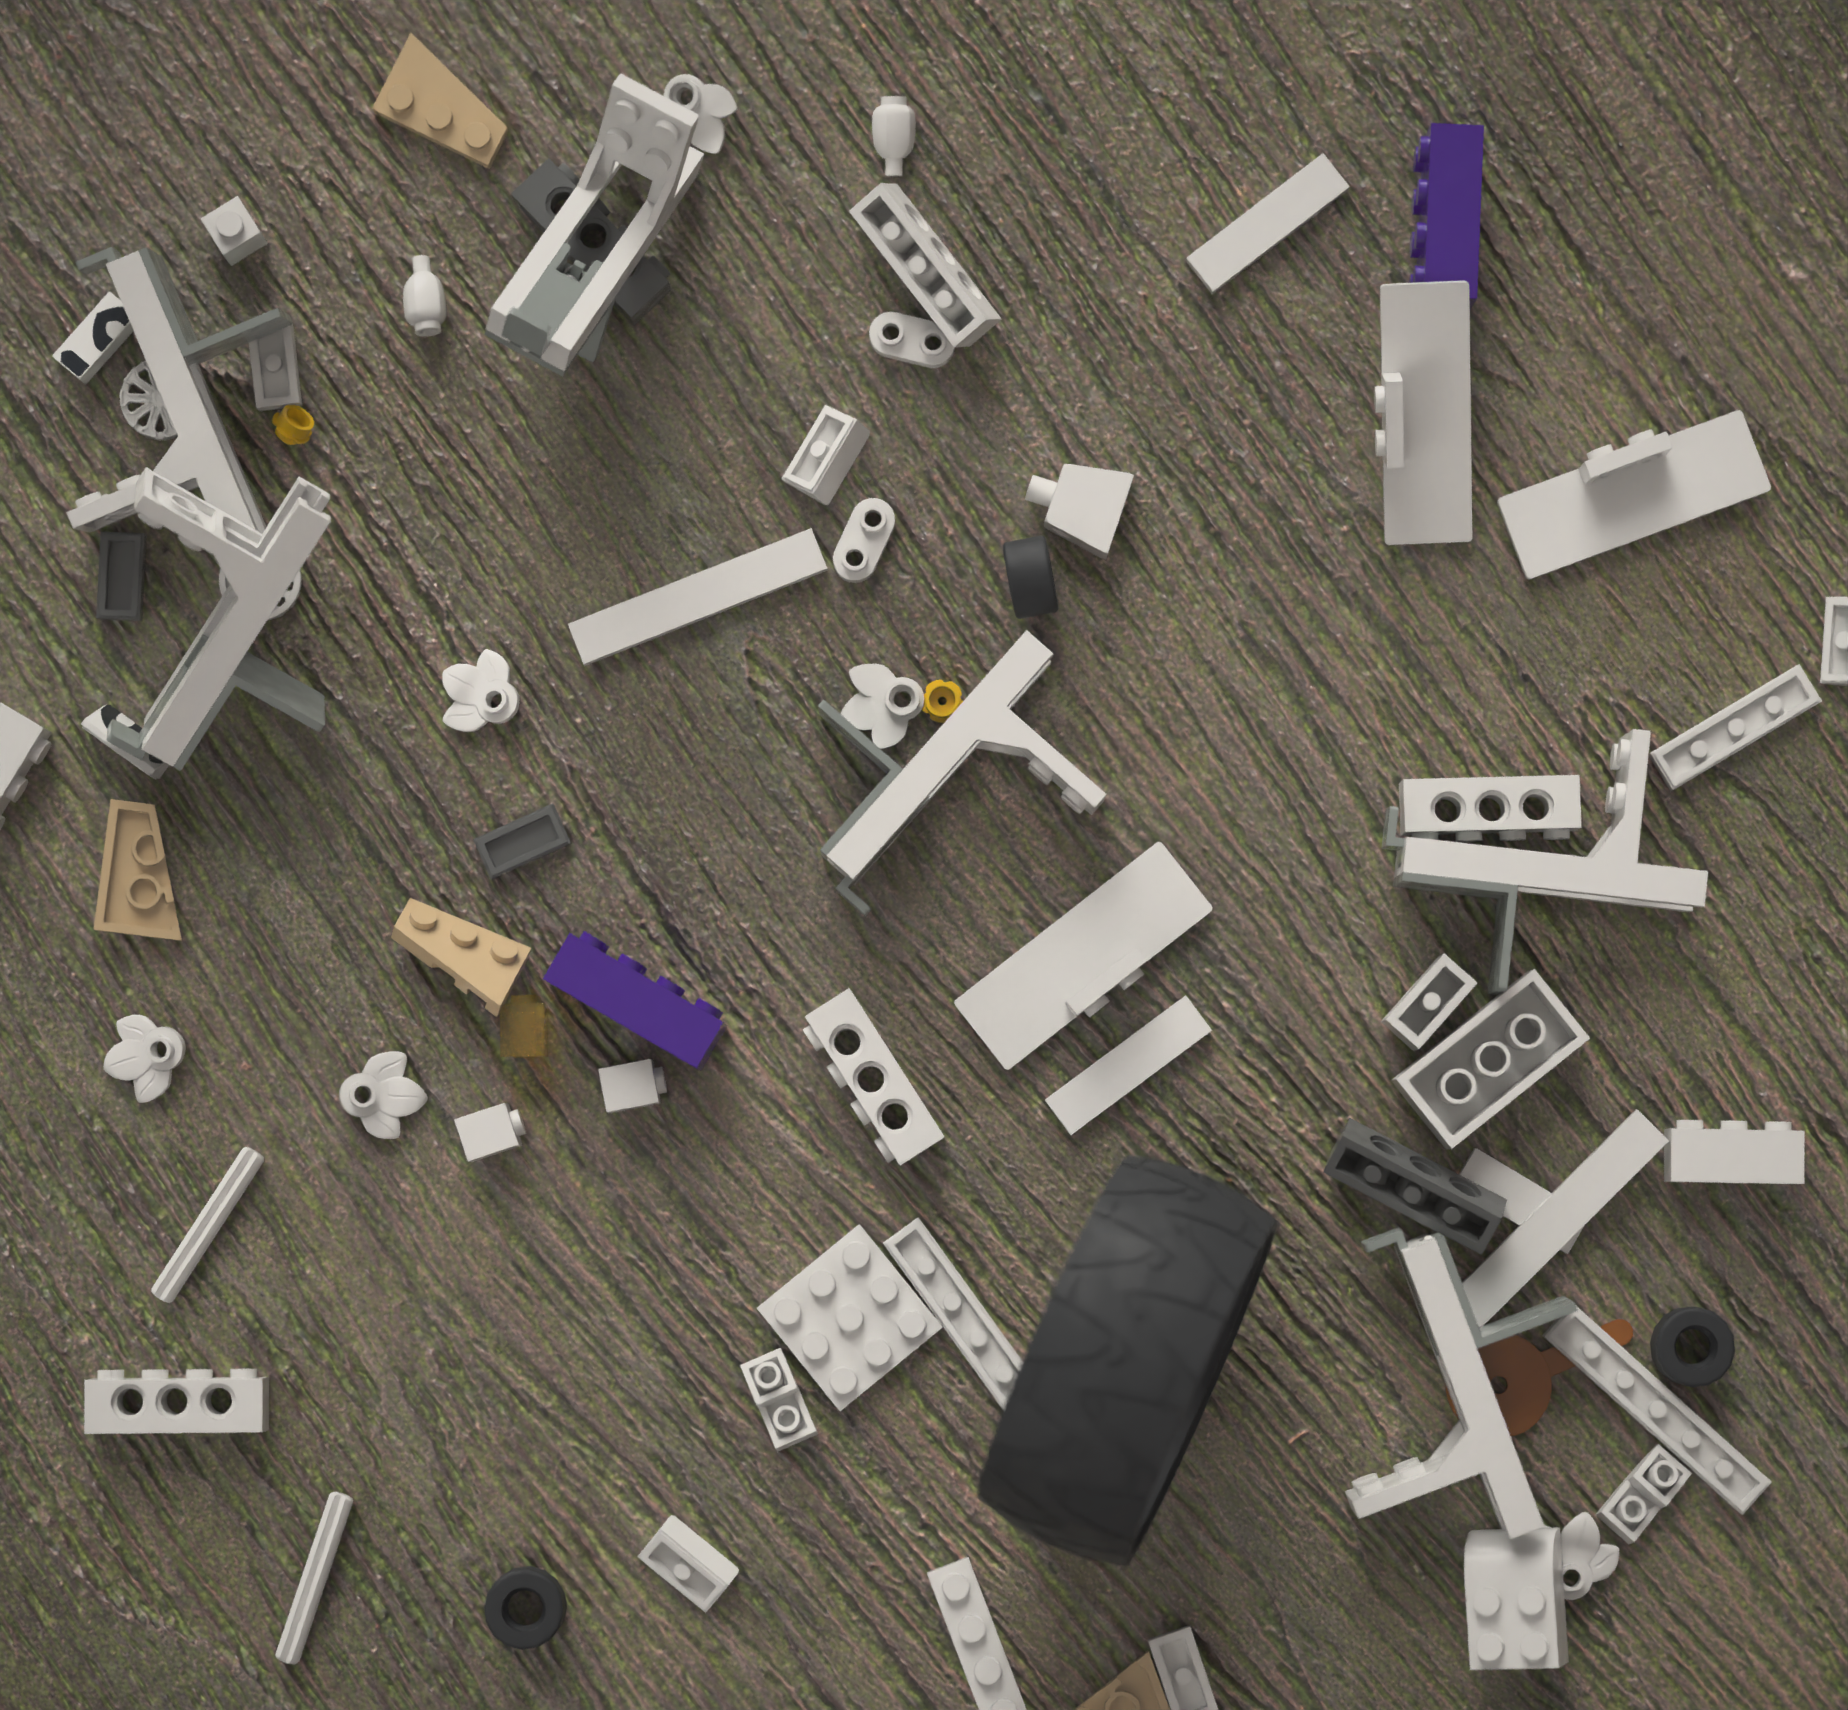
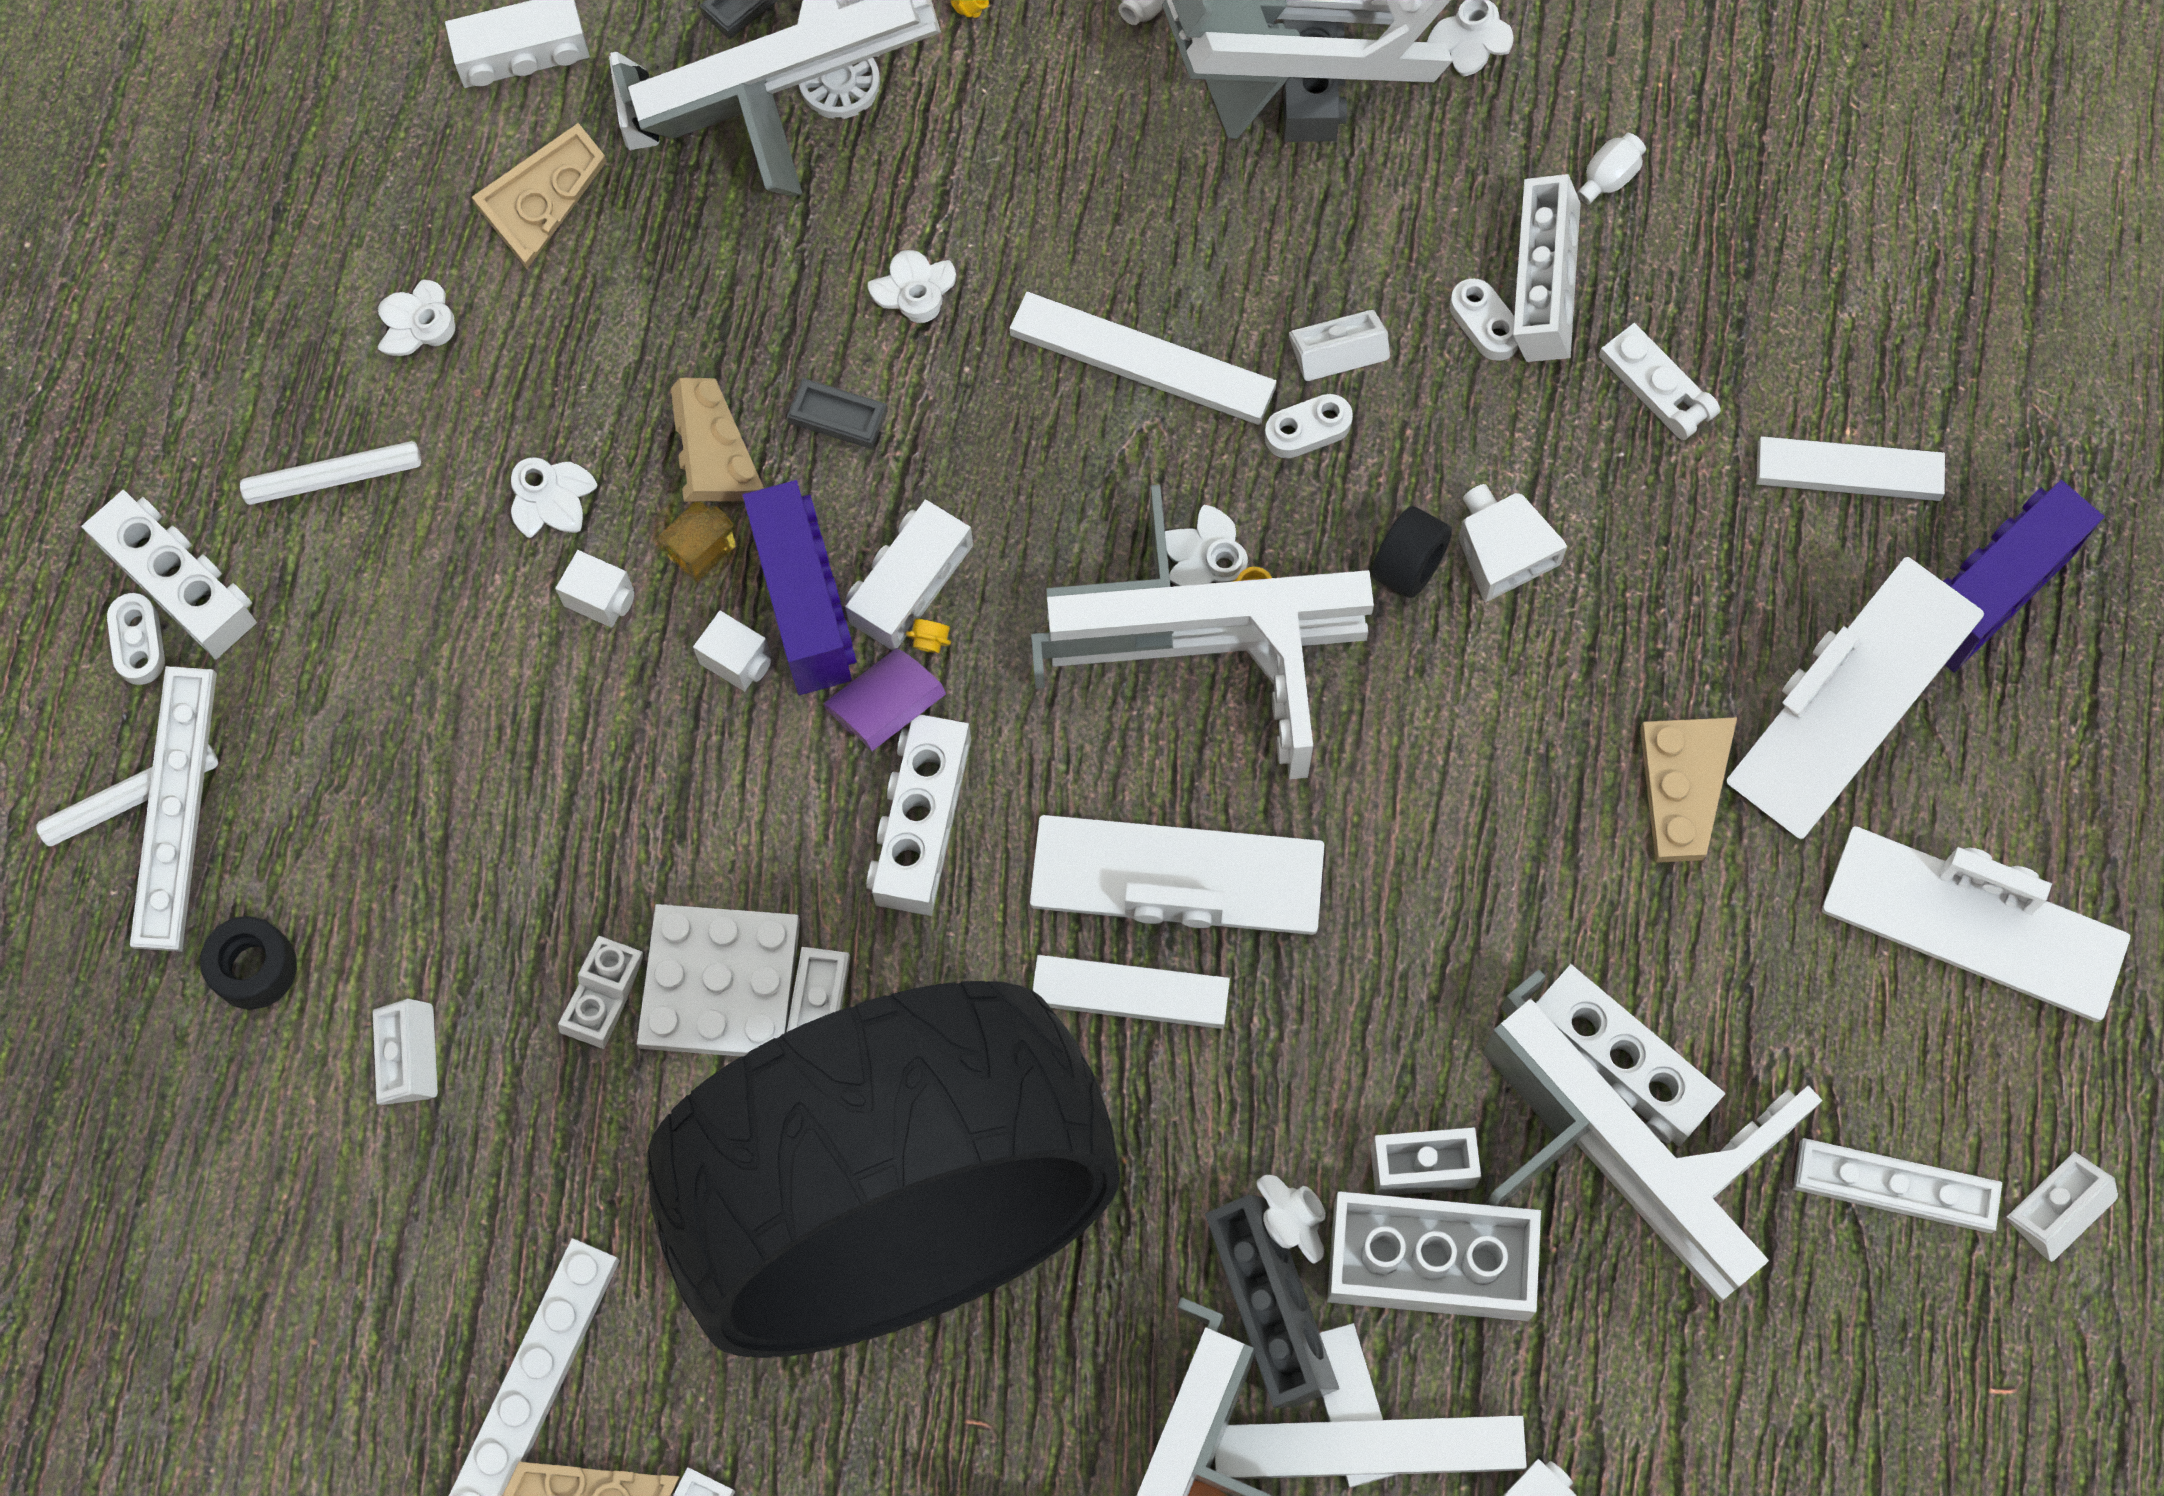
camera: 45 degrees right, 15 degrees down
(201, 1473) = (135, 642): none -> white plate
(361, 1557) = (173, 809): none -> white tile
(695, 916) = (908, 574): none -> white brick
(752, 946) = (929, 635): none -> yellow plate
(770, 1021) = (885, 698): none -> medium lavender slope
(1076, 277) = (1658, 381): none -> white plate
(1358, 569) = (1684, 782): none -> tan wing
(1378, 1118) = (1293, 1216): none -> white plate

